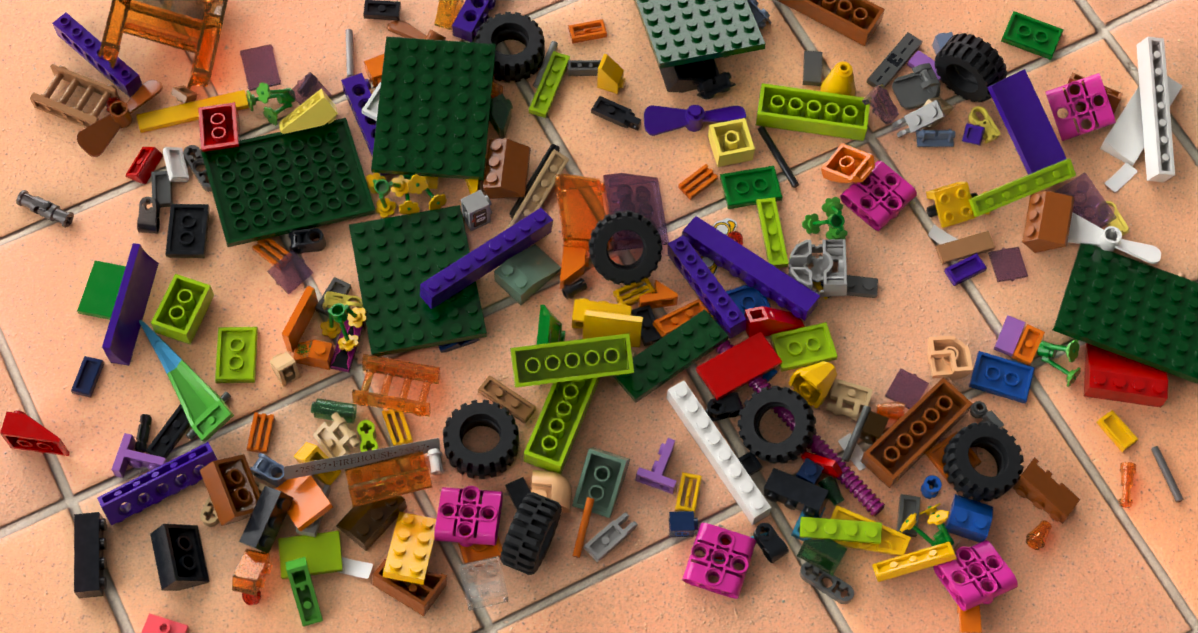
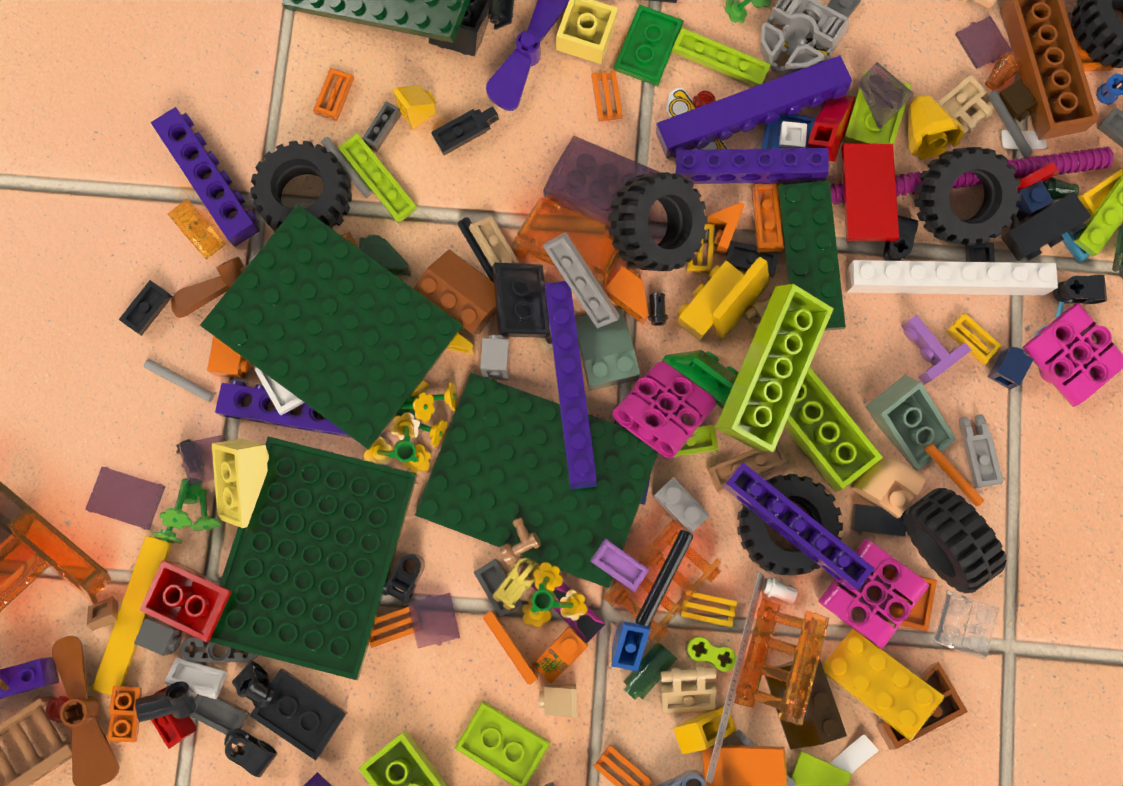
camera: 55 degrees left, 15 degrees up
(134, 139) = (123, 718): none -> orange slope
(156, 157) = (175, 701): none -> black piece
(188, 130) = (158, 637): none -> dark grey brick
(191, 194) = (254, 684): none -> black piece
(342, 384) = (629, 645): none -> blue slope
(357, 285) = (528, 541): none -> medium nougat piece
(389, 349) = (619, 565): none -> medium lavender tile
(397, 381) = (664, 578): none -> black axle
(452, 370) = (681, 505): none -> light grey brick
(476, 427) = (798, 527): none -> dark purple brick
(497, 354) = (702, 441): none -> lime plate
(508, 319) = (670, 391): none -> dark pink connector
(523, 201) = (521, 300): none -> black tile
(555, 224) = (581, 280): none -> light grey tile
(746, 300) = (792, 135): none -> white plate
(815, 339) = (883, 94): none -> wing

